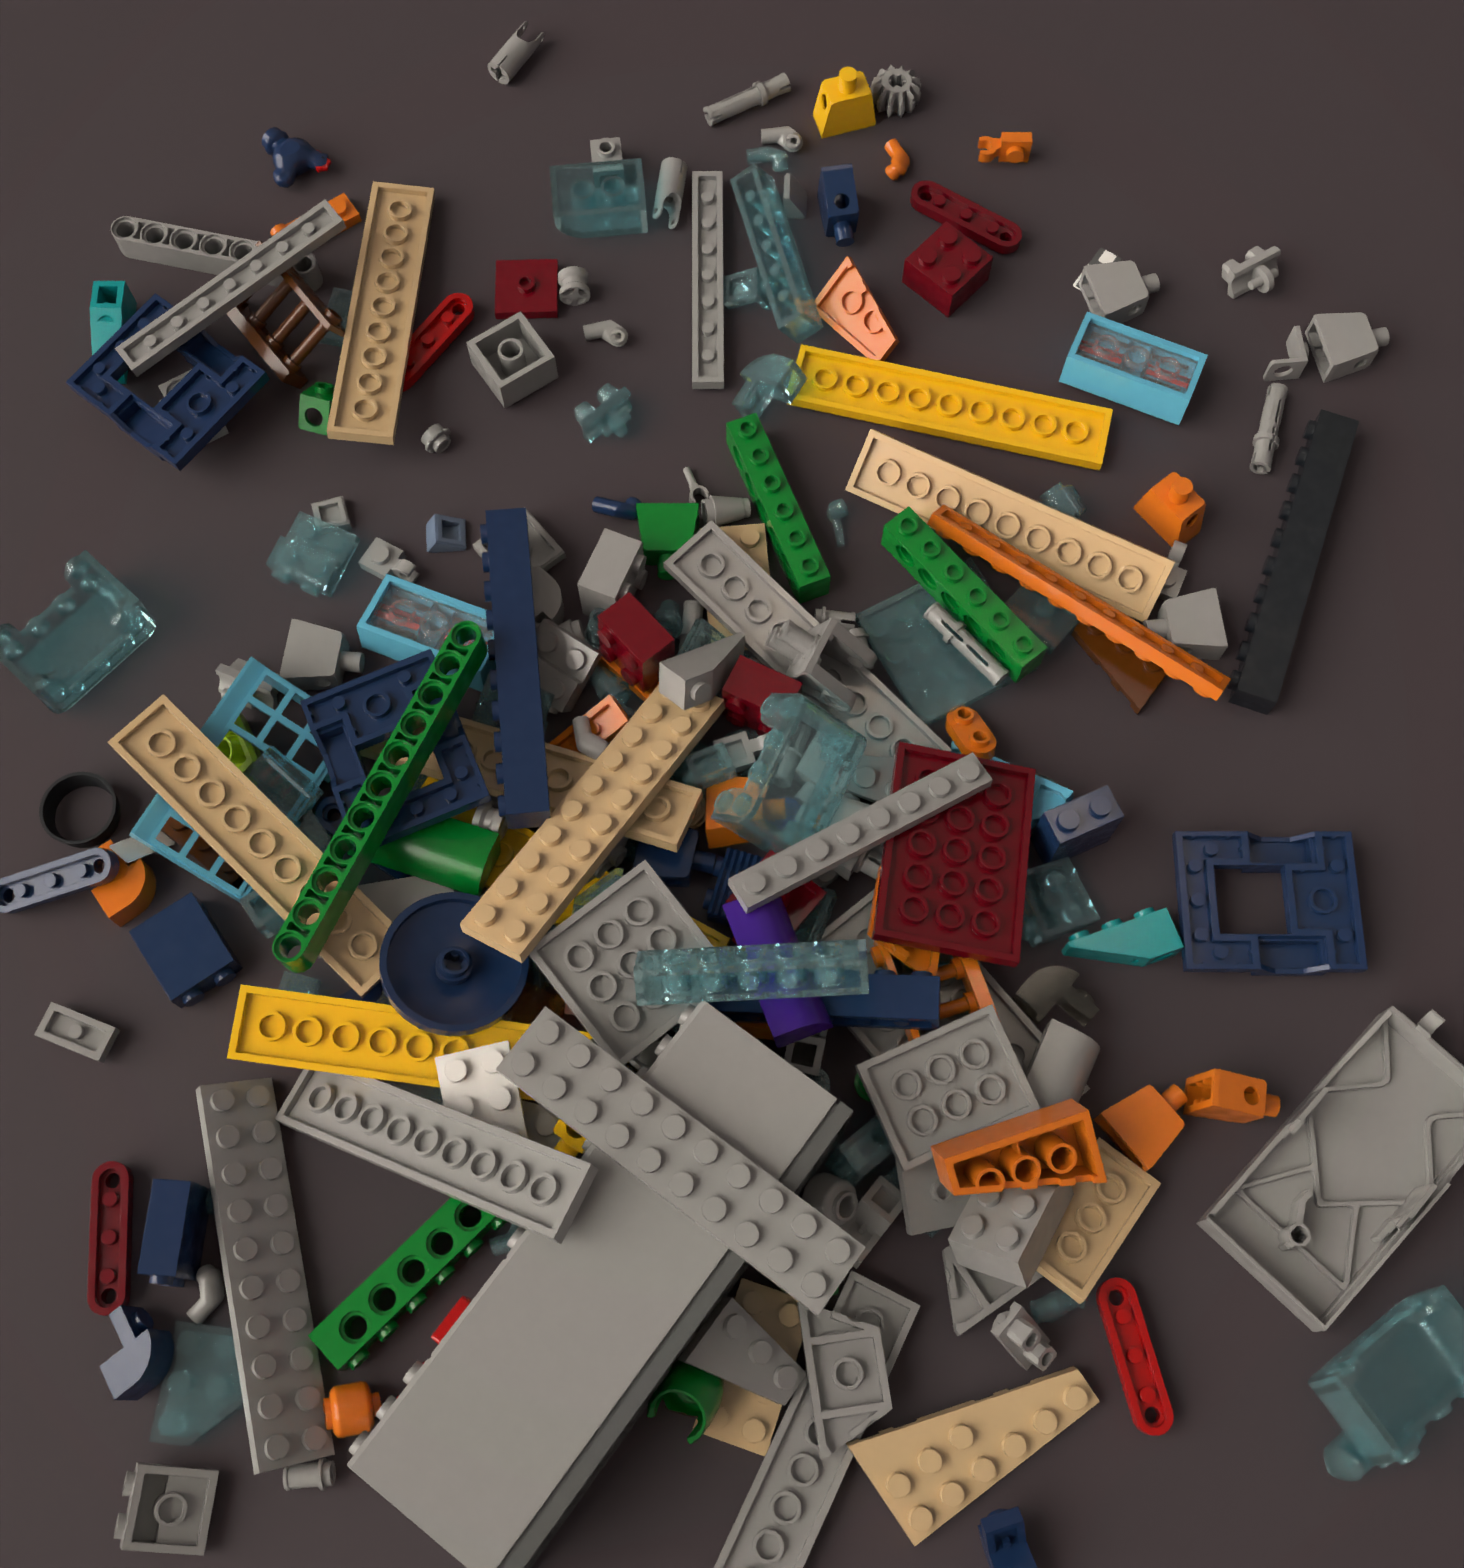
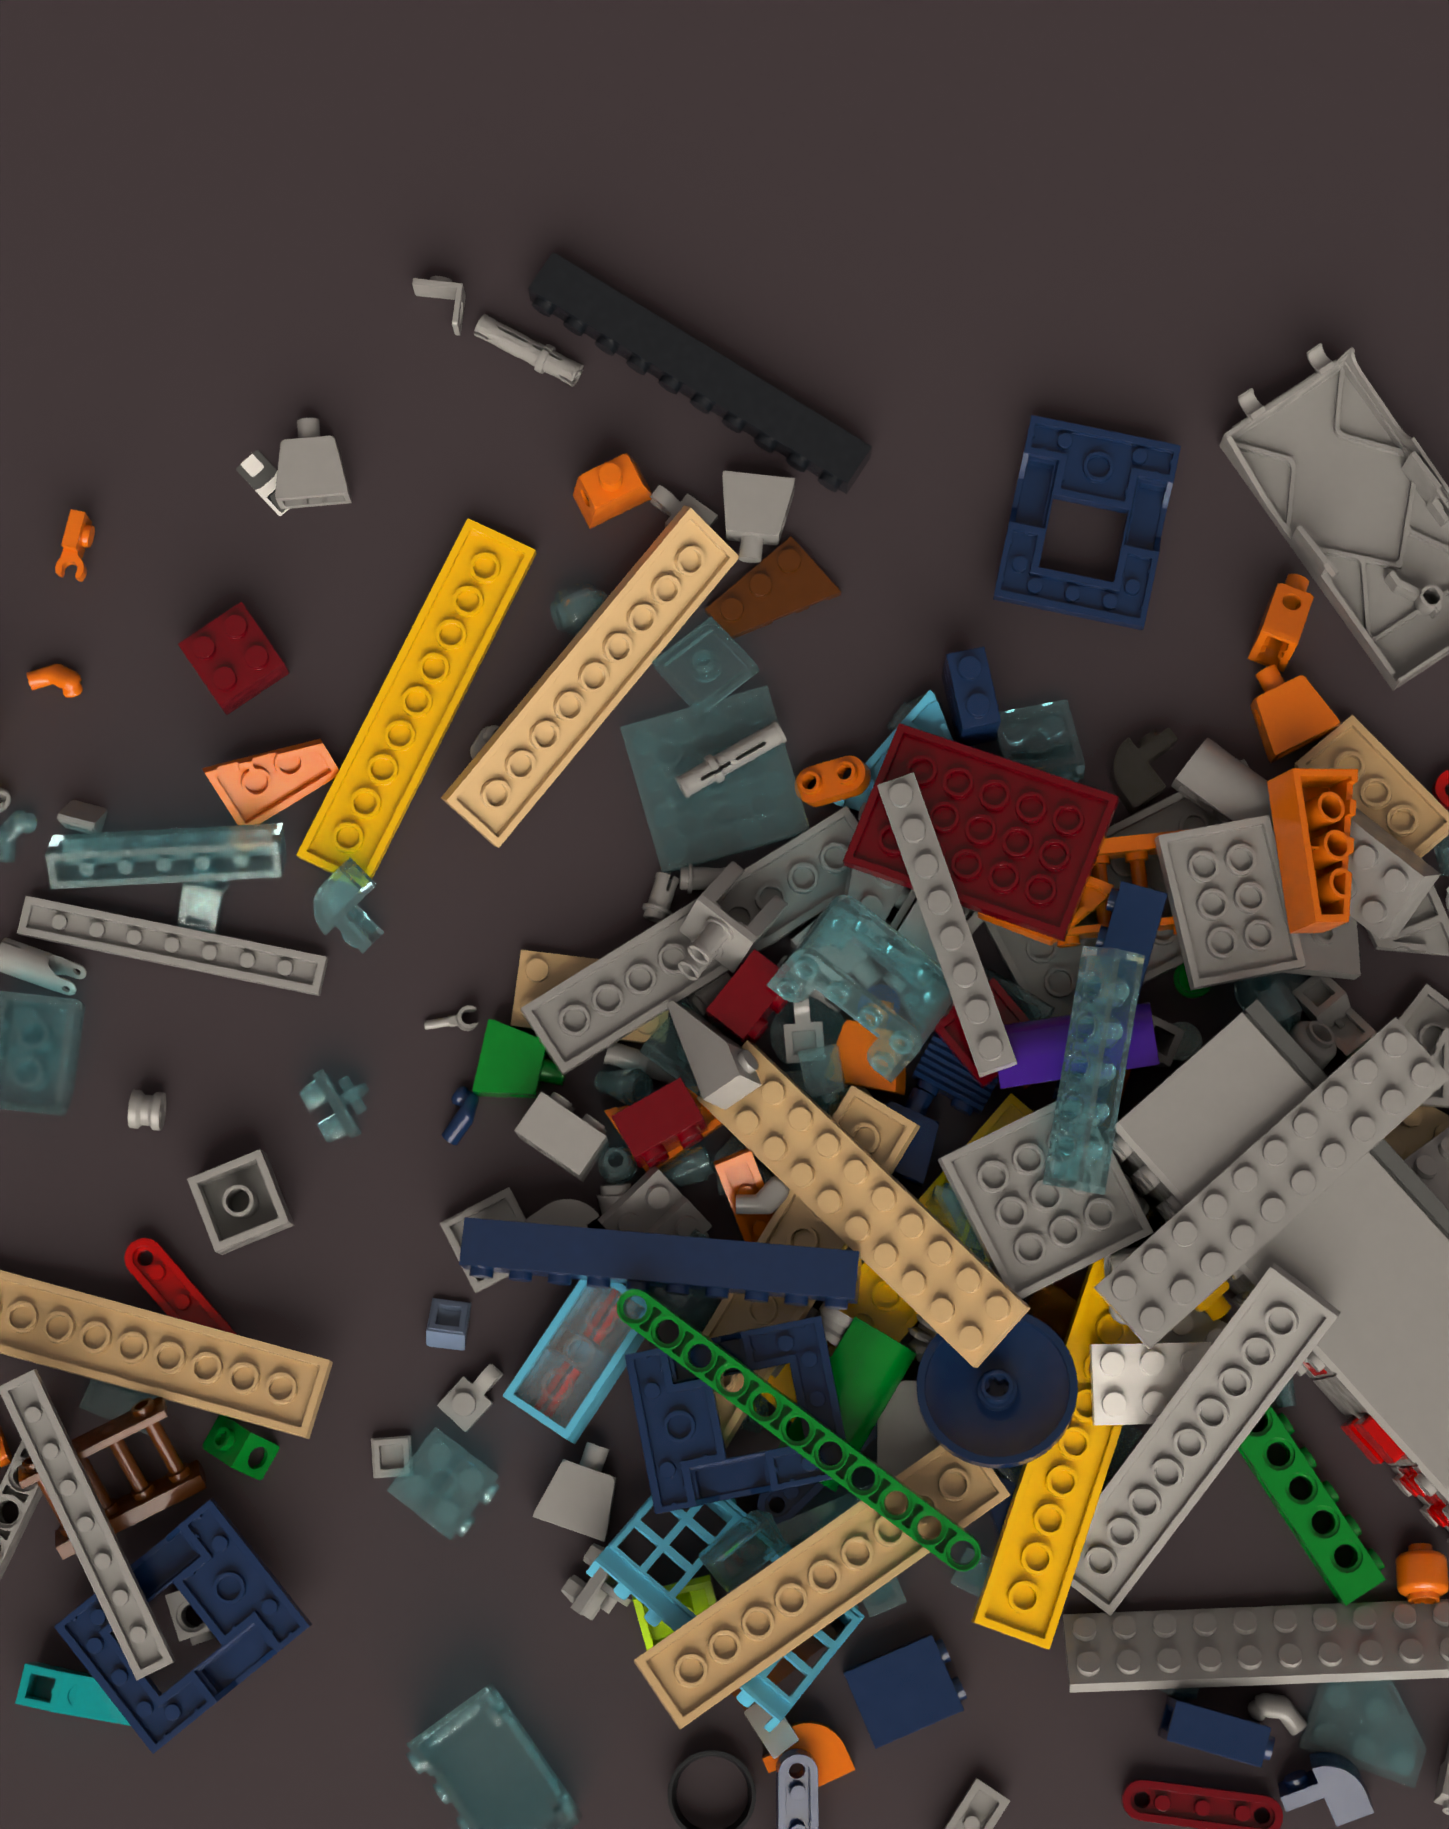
camera: 75 degrees left, 10 degrees up
(436, 438) = (320, 1313): light grey plate -> none
(527, 288) = (131, 1169): dark red plate -> none
(608, 331) = (216, 1081): light grey arm -> none
(724, 509) = (494, 992): light grey cone -> none
(777, 508) = (507, 930): green brick -> none
(836, 511) = (522, 865): clear light blue hand -> none
(838, 203) = (101, 760): dark blue torso -> none
(962, 593) = (673, 748): green brick -> none
(966, 216) = (160, 617): dark red plate -> none
(1087, 607) = (706, 625): orange plate -> none
(1133, 368) = (421, 480): brick -> none
(1134, 942) = (1099, 664): teal slope -> none
(1255, 272) = (326, 303): light grey hips -> none
(1343, 343) = (440, 233): light grey torso -> none

